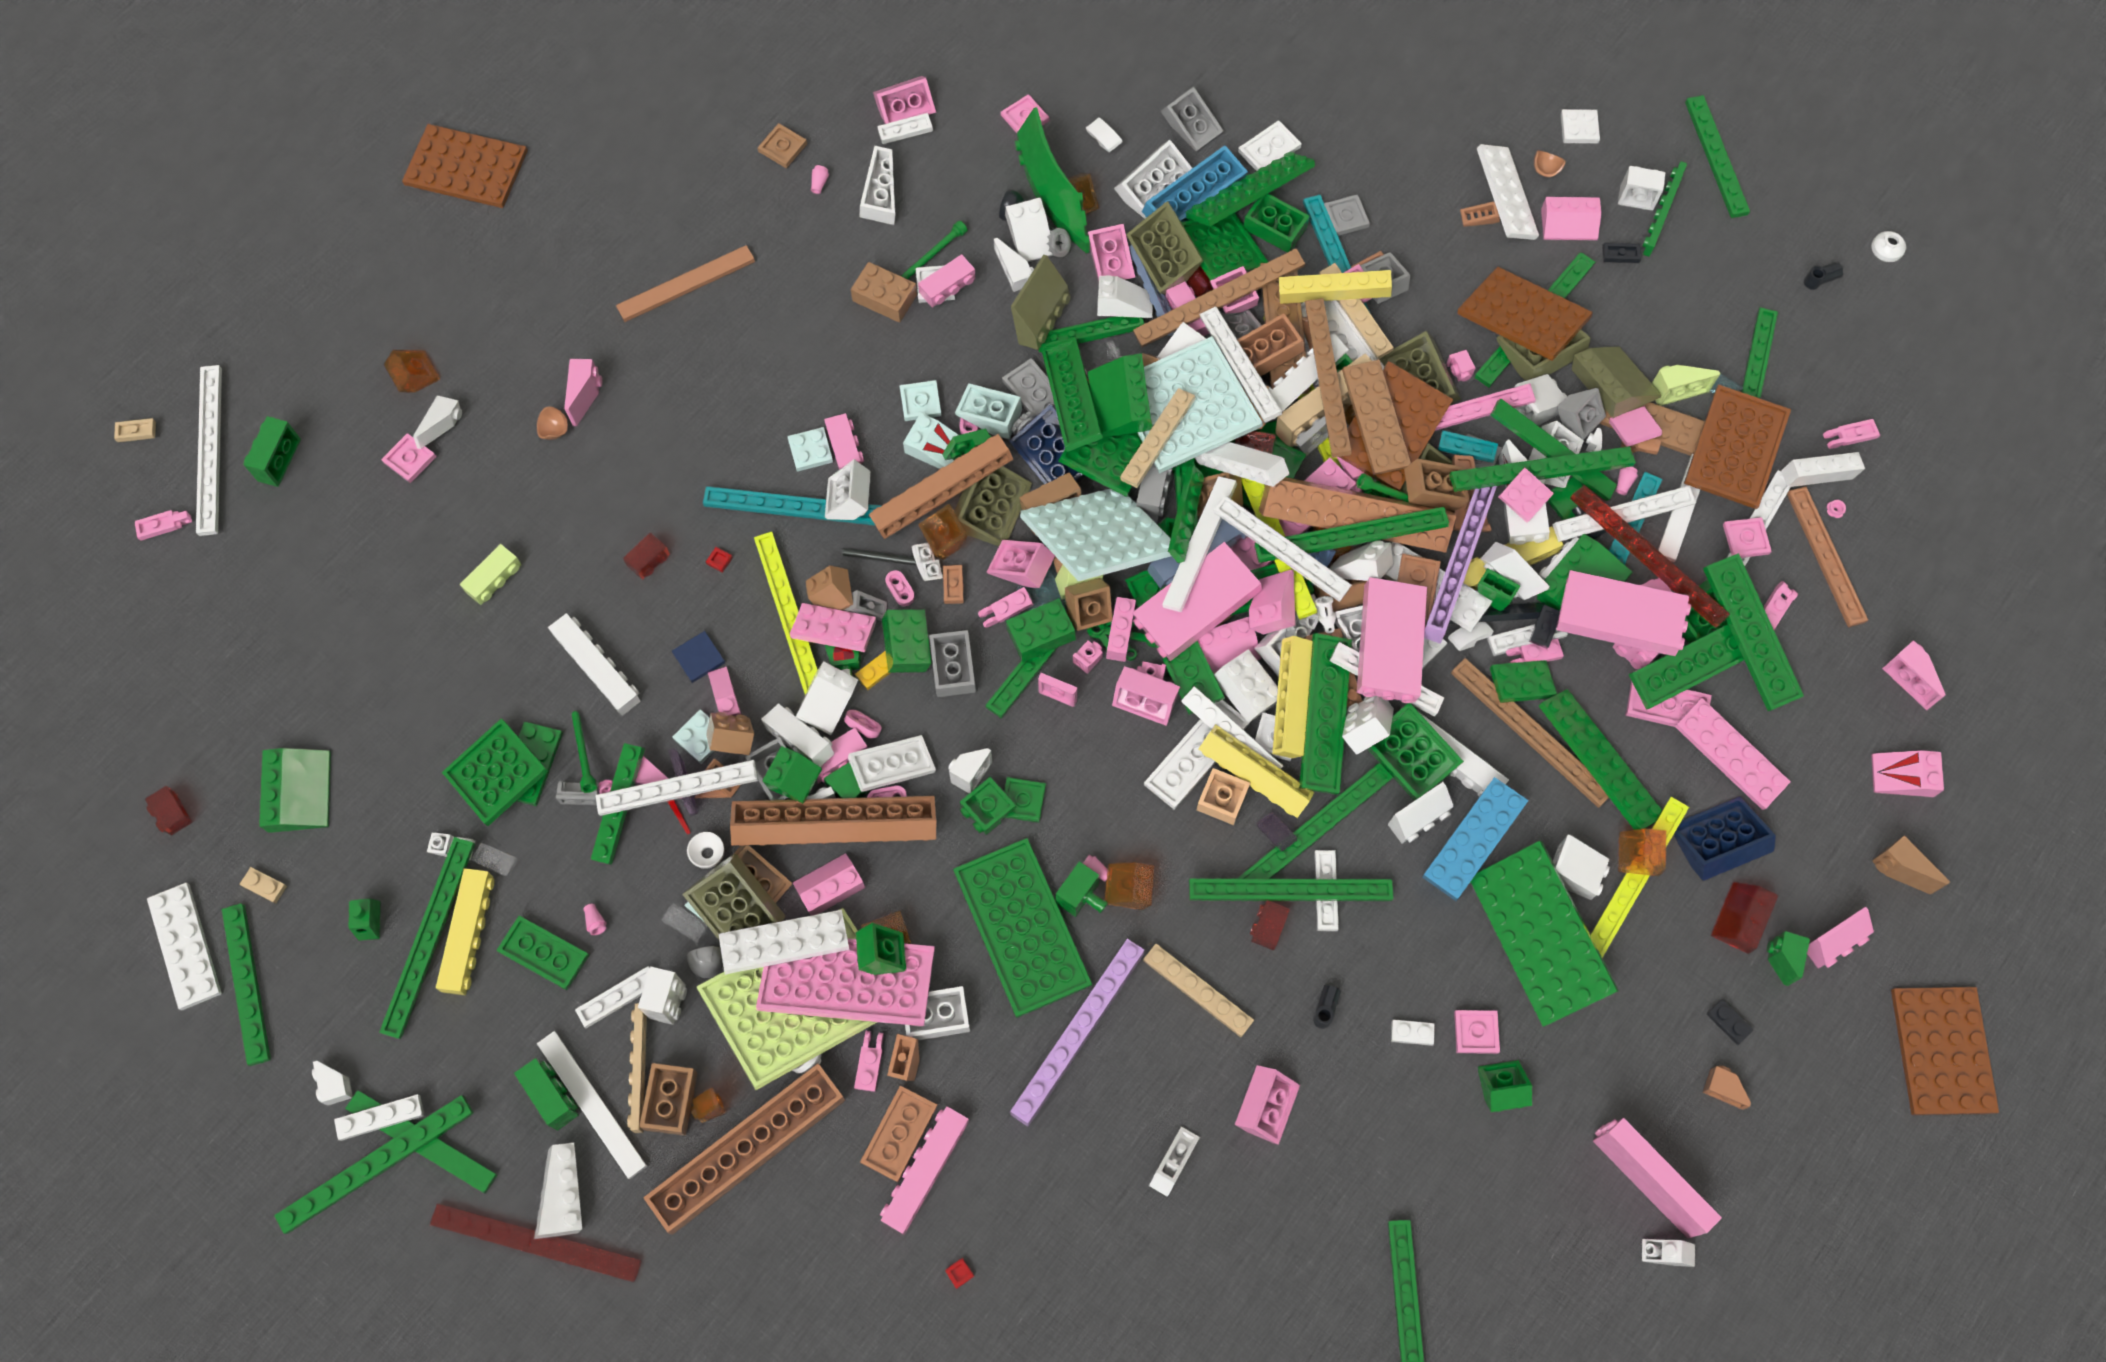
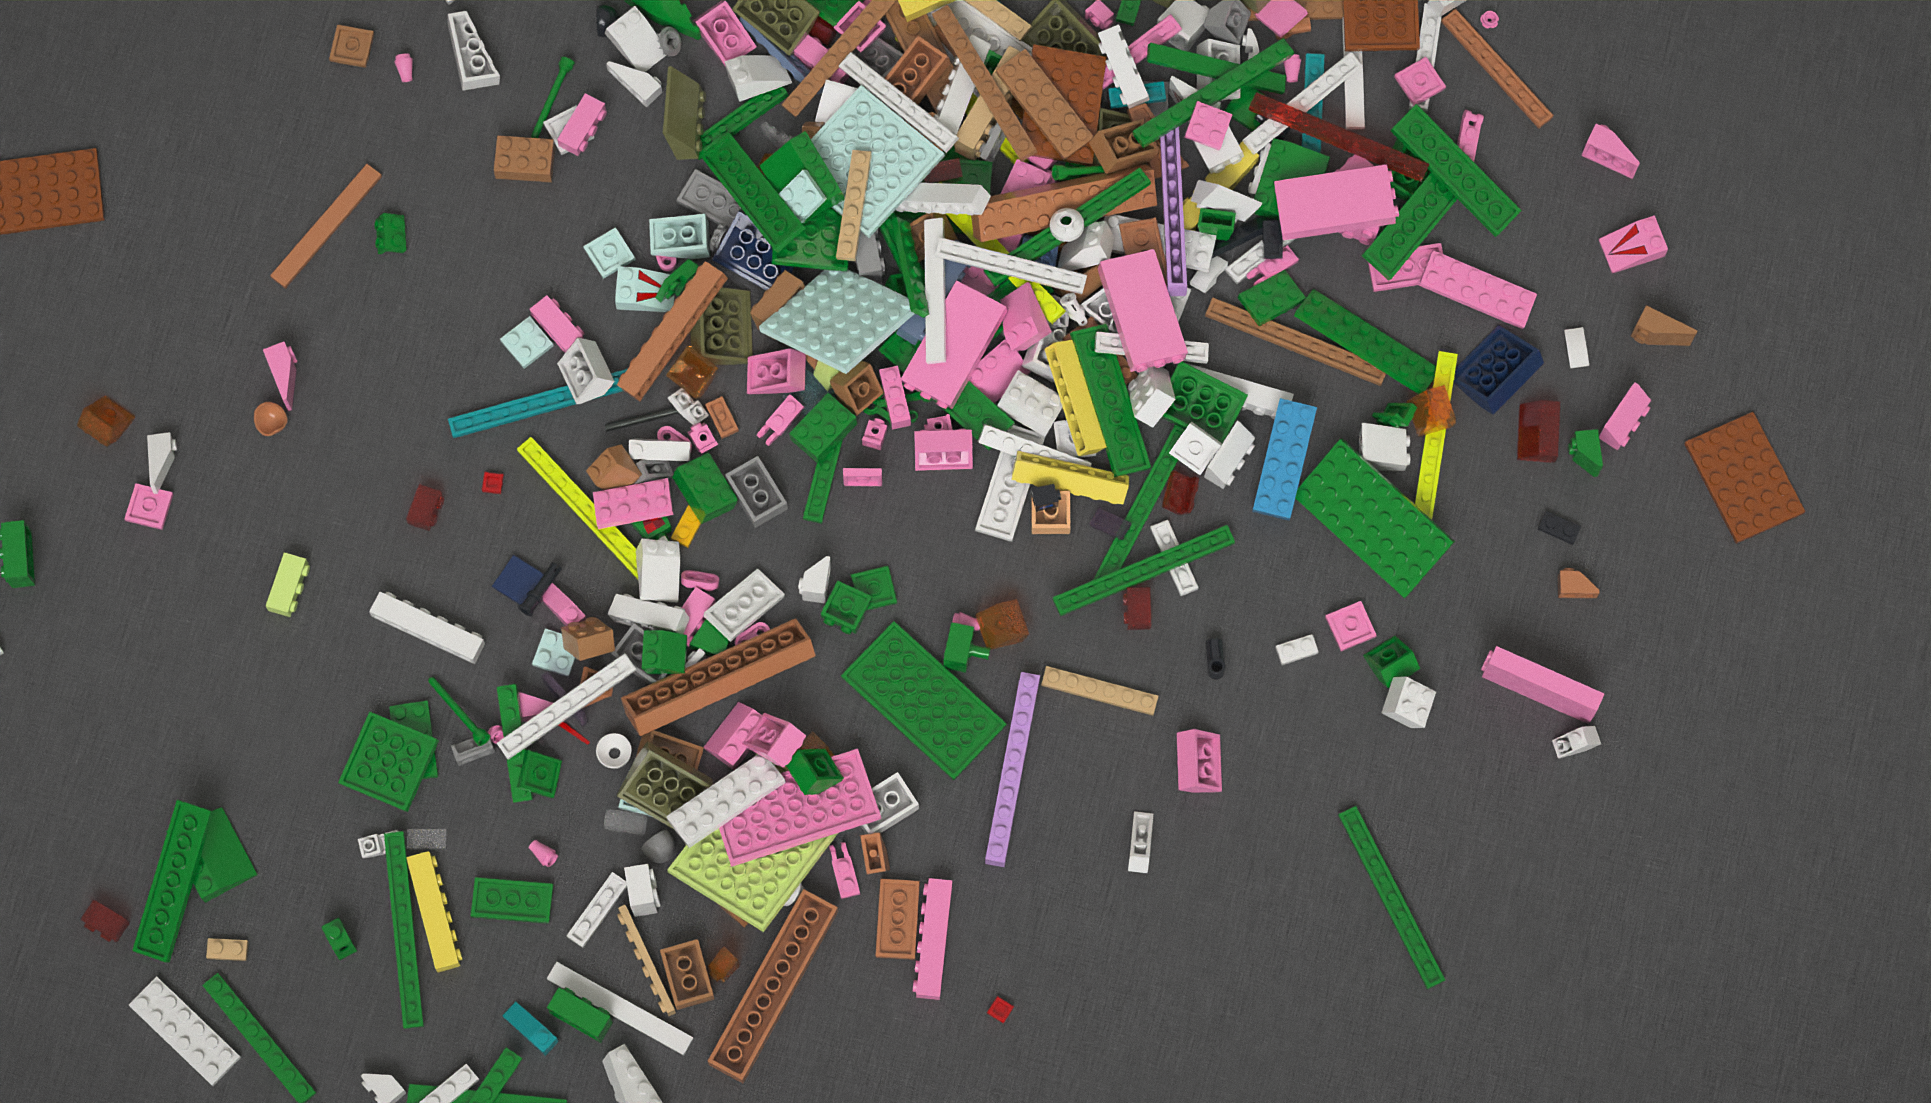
camera: 25 degrees left, 5 degrees up
(241, 799) = (173, 881): none -> green plate
(497, 1087) = (530, 1028): none -> teal slope
(626, 842) = (539, 774): none -> green tile
(704, 675) = (534, 596): none -> black pin
(737, 310) = (390, 233): none -> green bracket
(855, 903) = (774, 739): none -> bright pink slope
(880, 589) = (659, 449): none -> white slope
(929, 601) = (695, 433): none -> bright pink brick
(1113, 409) = (803, 195): none -> light aqua plate
(1223, 779) = (1045, 497): none -> black brick
(1351, 538) = (1066, 232): none -> white piece
(1358, 830) = (1180, 493): none -> clear red bracket
(1390, 792) = (1195, 448): none -> white plate
(1465, 412) = (1123, 66): none -> white wedge
(1507, 1135) = (1408, 702): none -> white brick
(1604, 841) = (1396, 414): none -> green bracket
(1813, 849) = (1576, 347): none -> white slope

